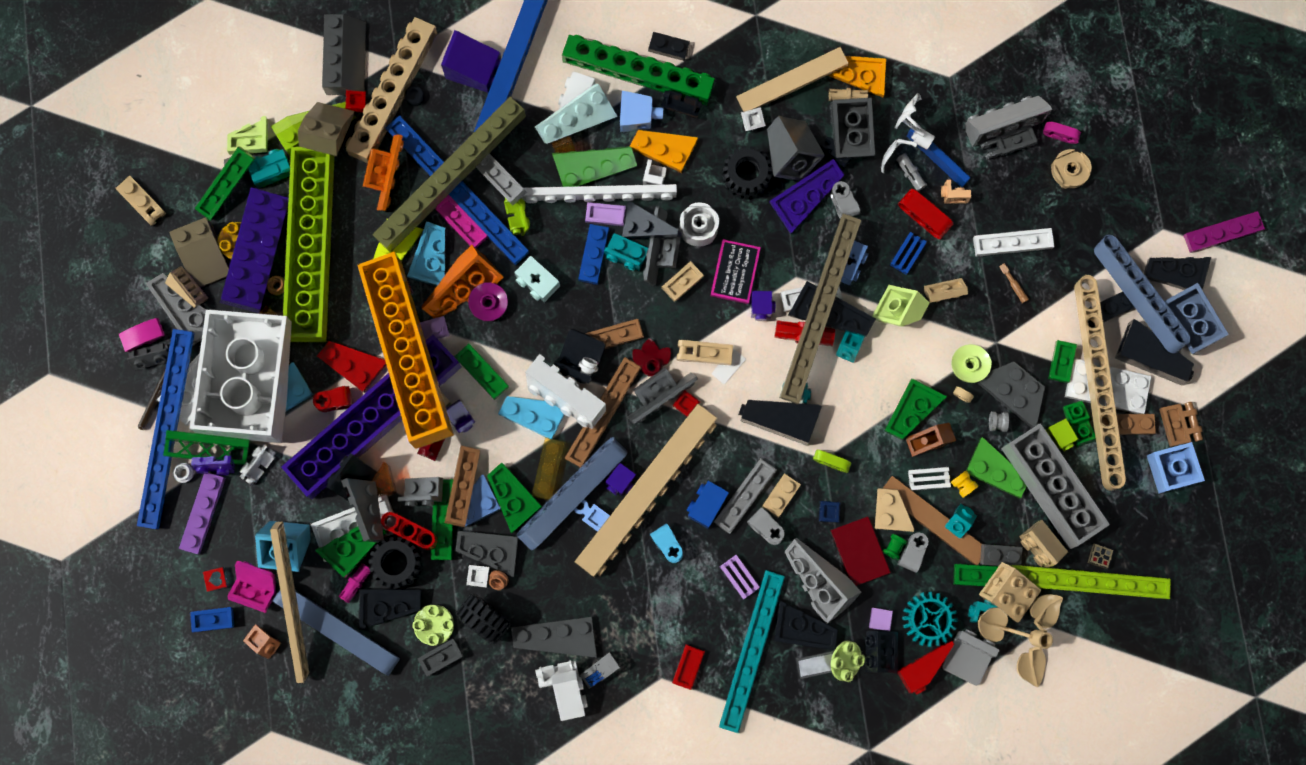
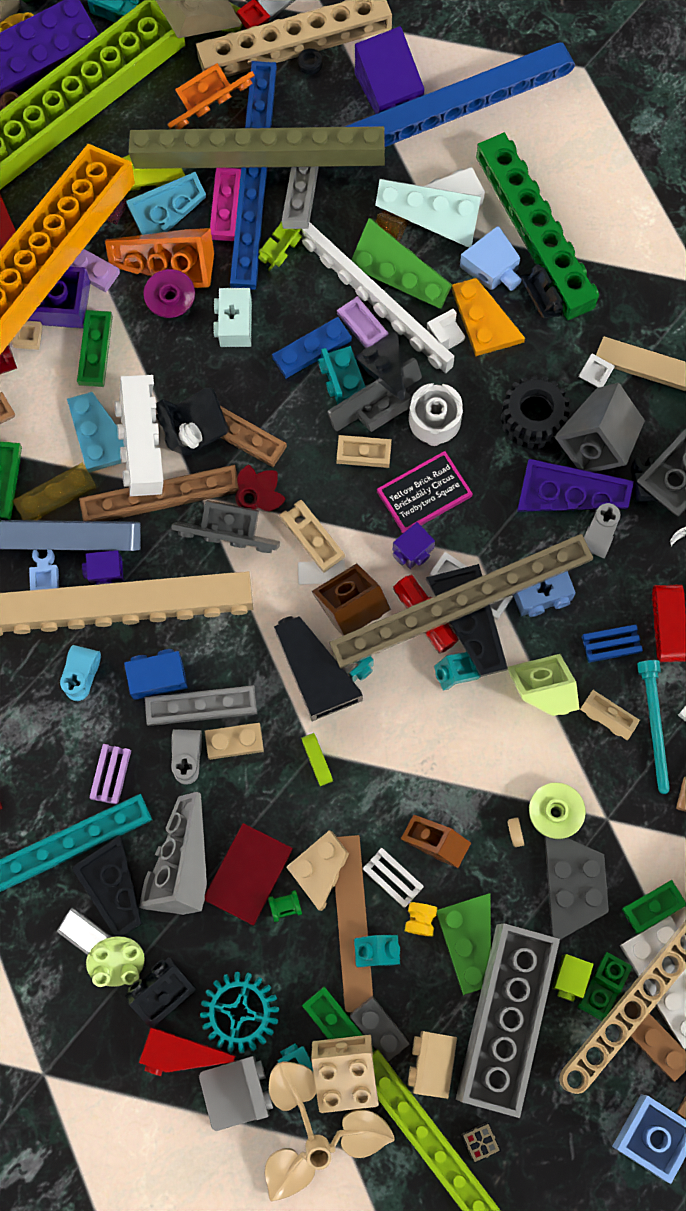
camera: 50 degrees right, 5 degrees down
(460, 416) = (30, 366): bracket -> none
(668, 46) = (589, 233): black plate -> none
(686, 403) = (243, 561): red tile -> none
(761, 364) = (352, 600): none -> reddish brown slope
(829, 512) = (262, 805): dark blue tile -> none
(880, 619) = (194, 960): lavender tile -> none
(911, 555) = (292, 933): light grey piece -> none
(912, 408) = (451, 793): green wing -> none
(941, 249) = (649, 672): none -> teal piece
(998, 421) = (523, 896): light grey wheel -> none

